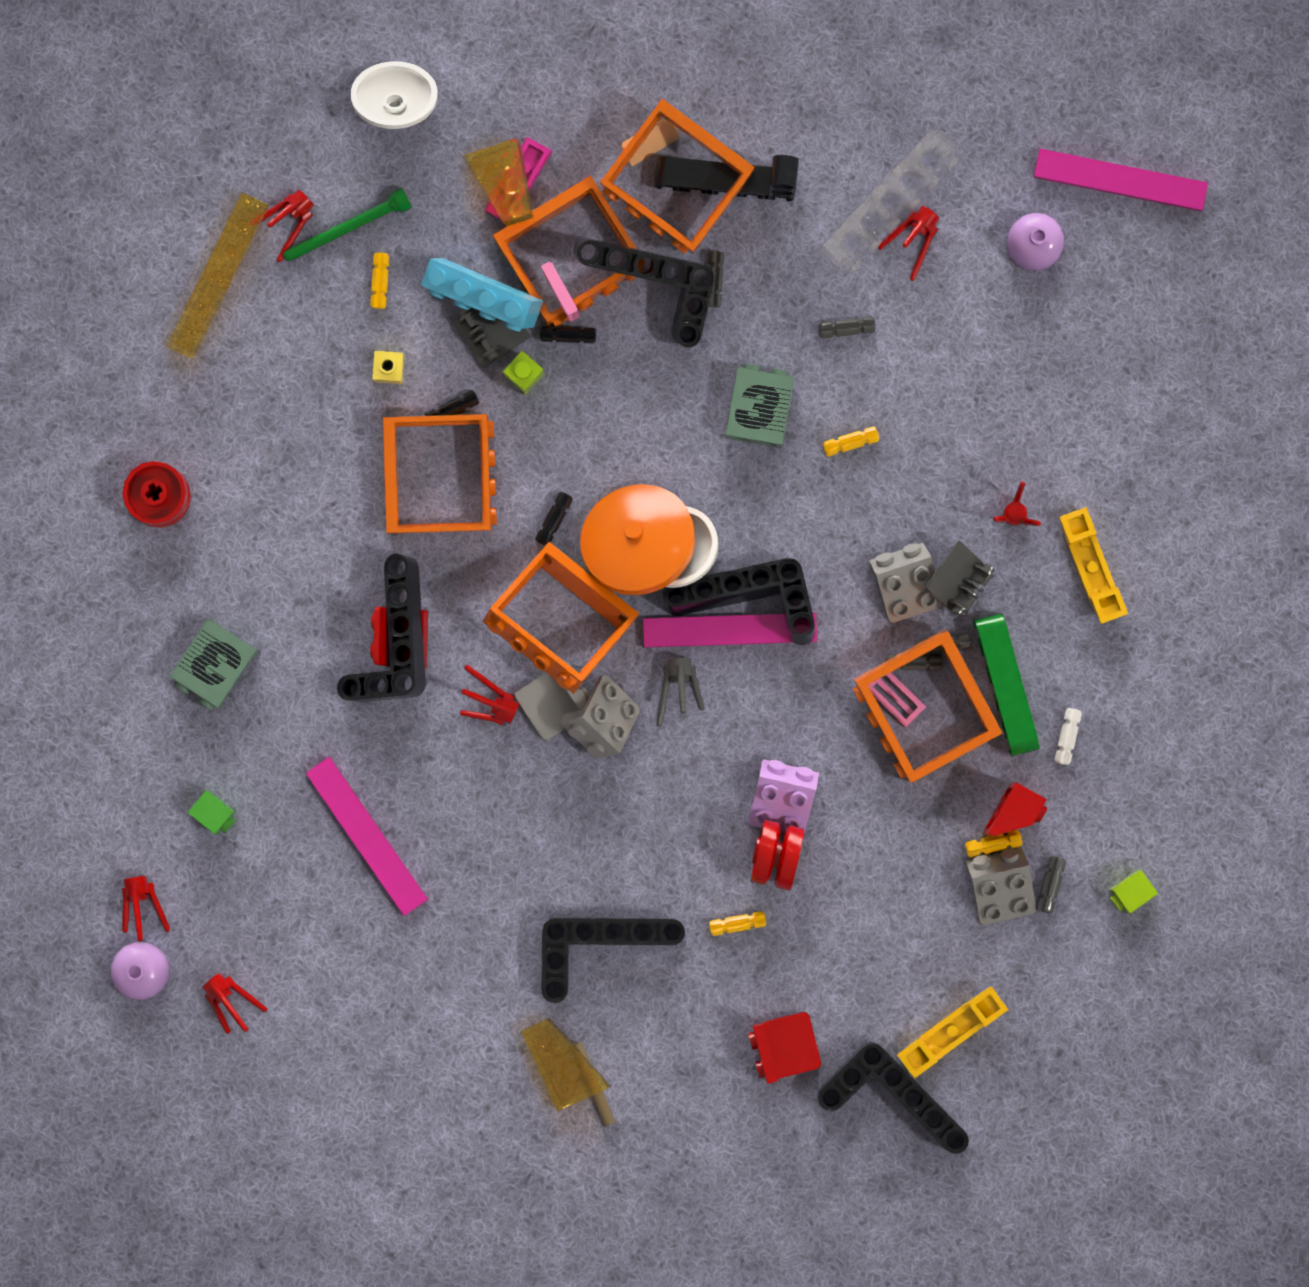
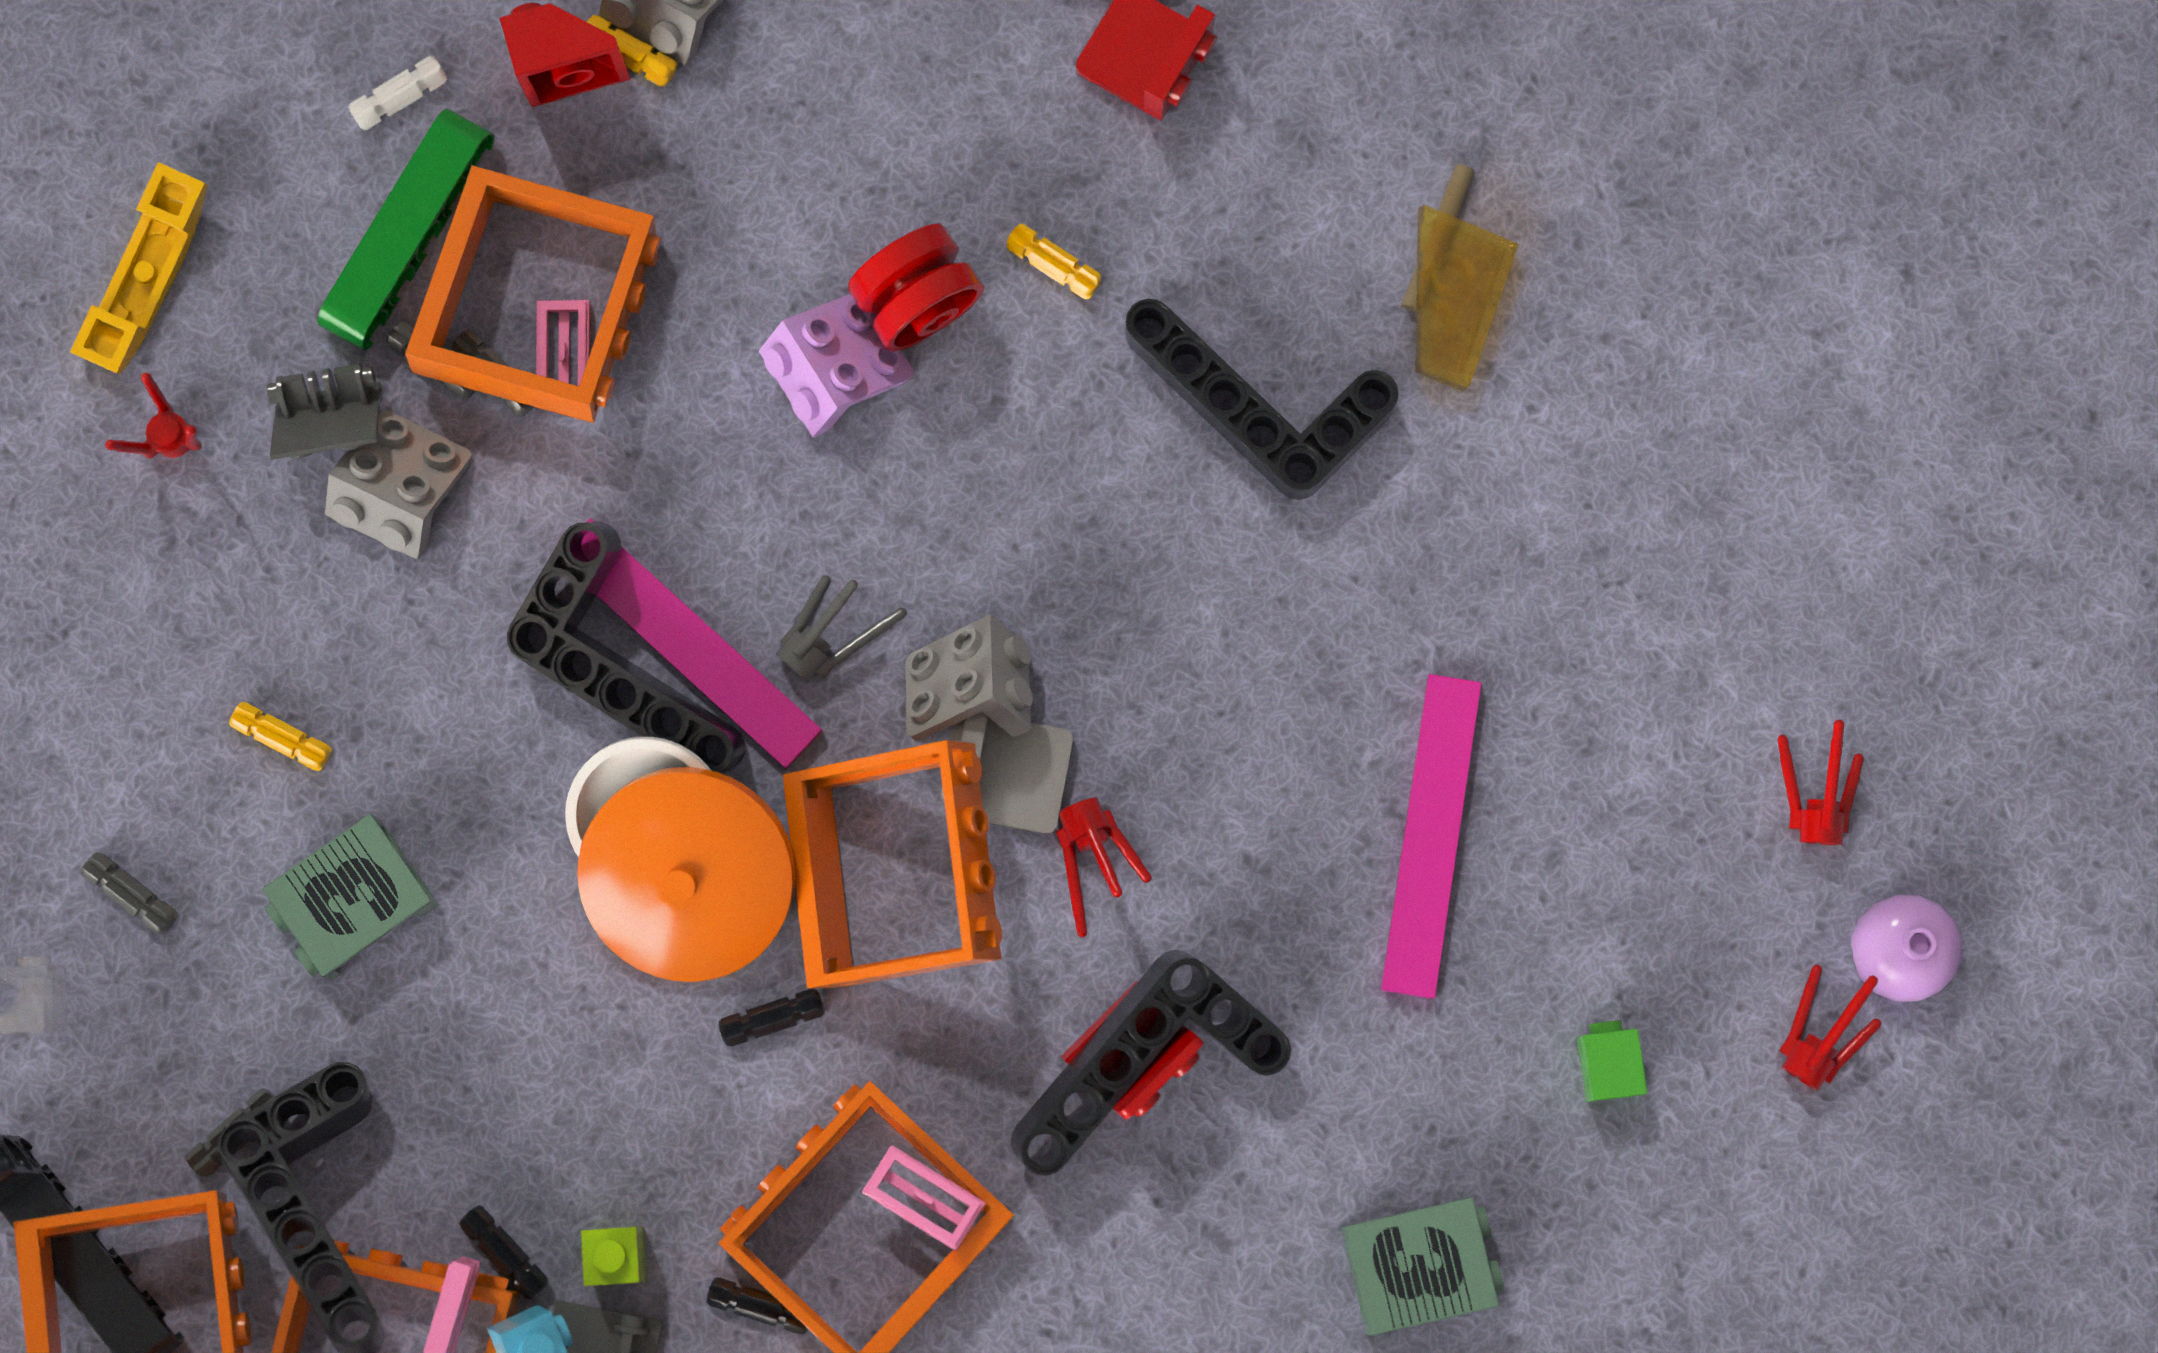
camera: 135 degrees left, 5 degrees down
(450, 500) = (963, 1223): none -> bright pink tile

